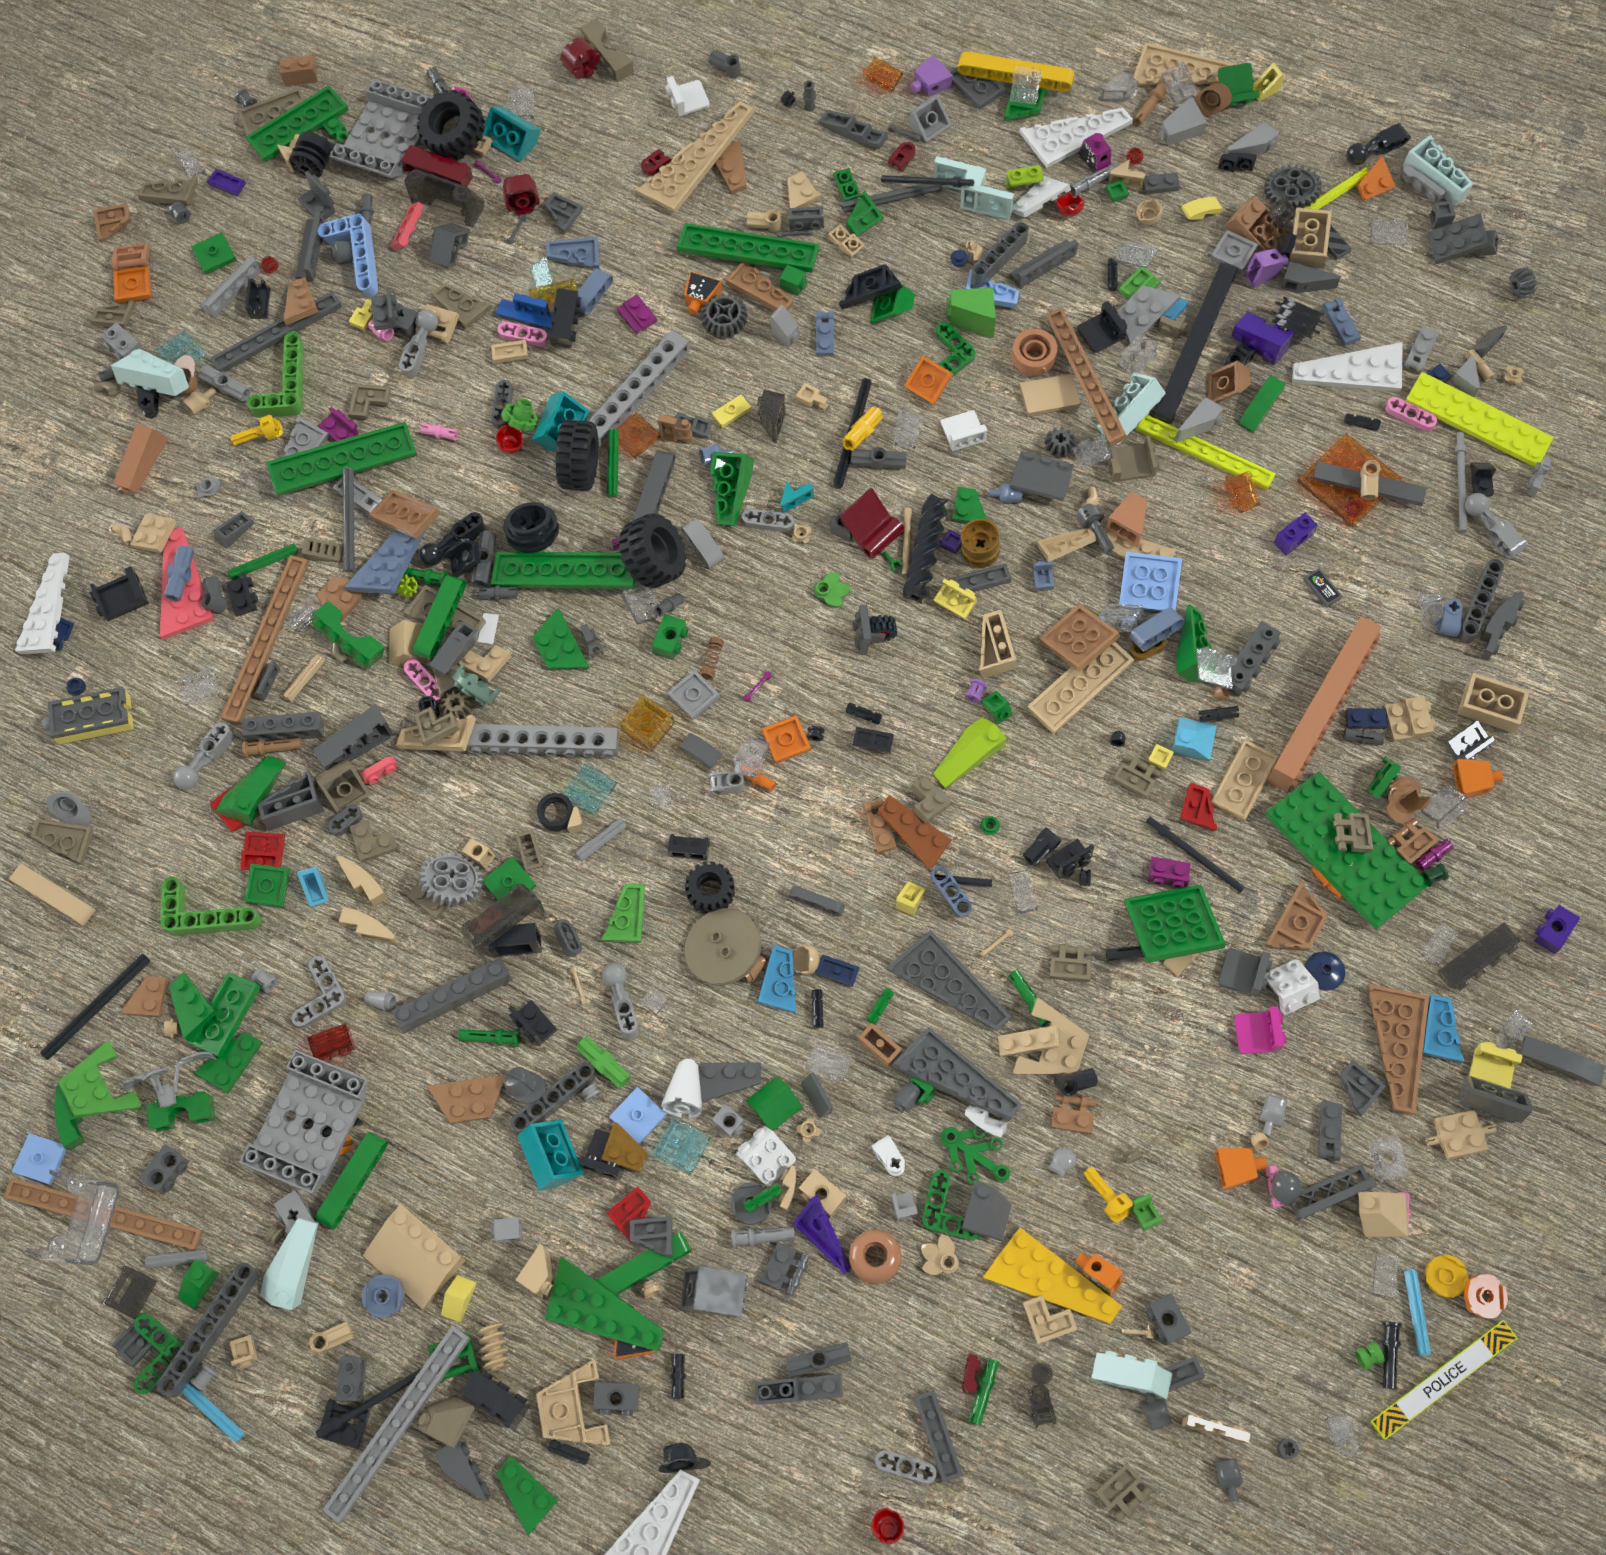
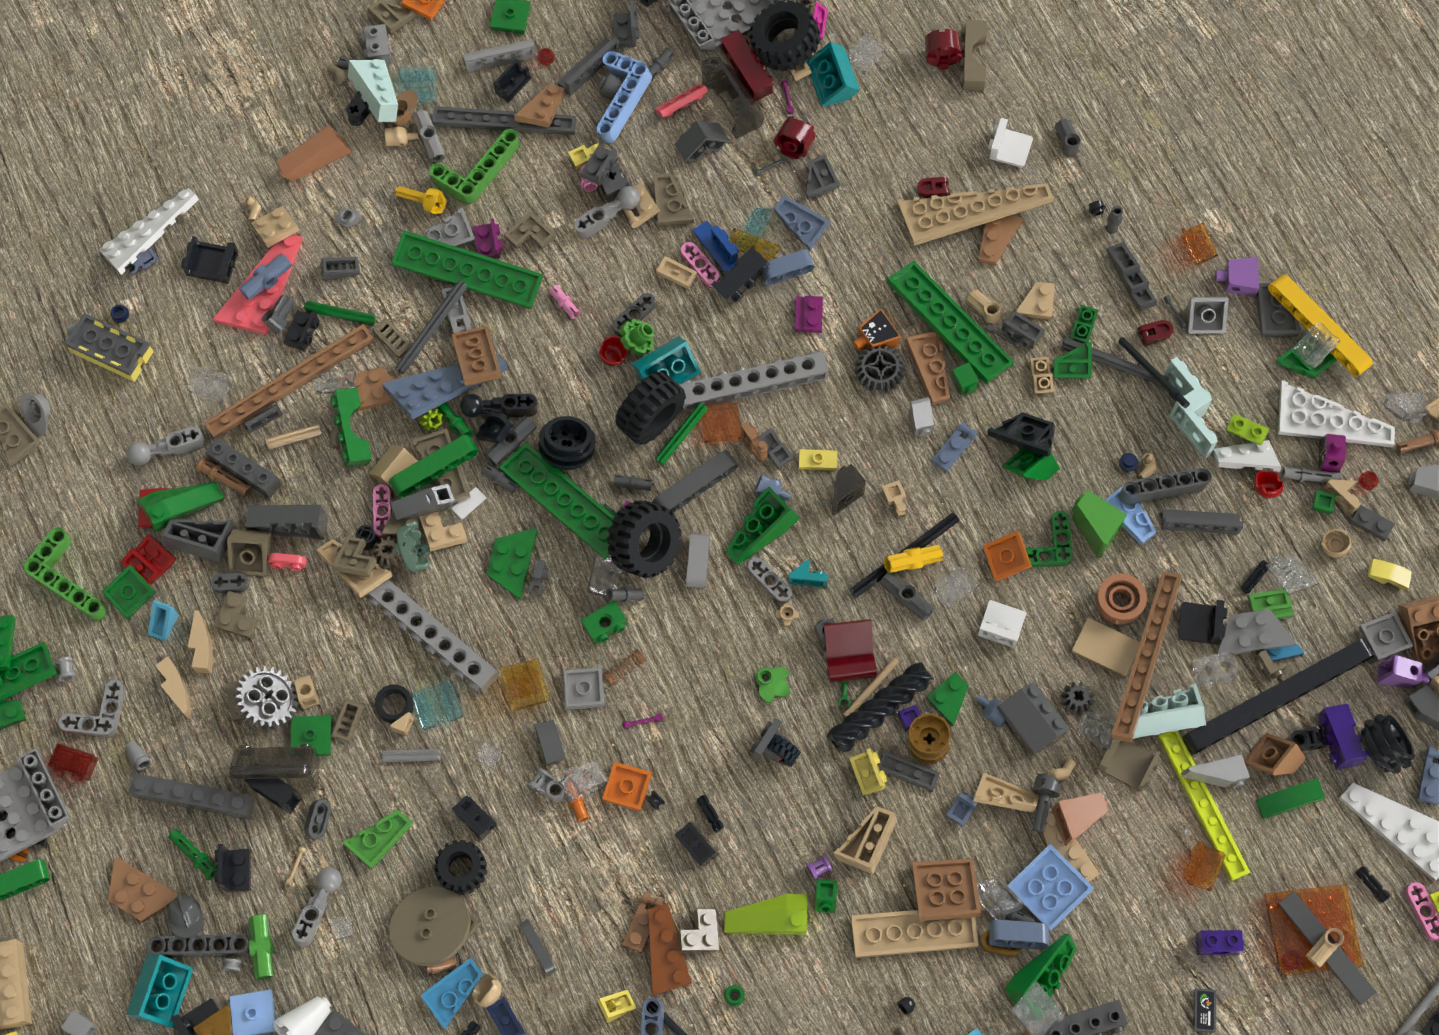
camera: 35 degrees right, 0 degrees up
(605, 523) = (632, 482): none -> dark grey pin

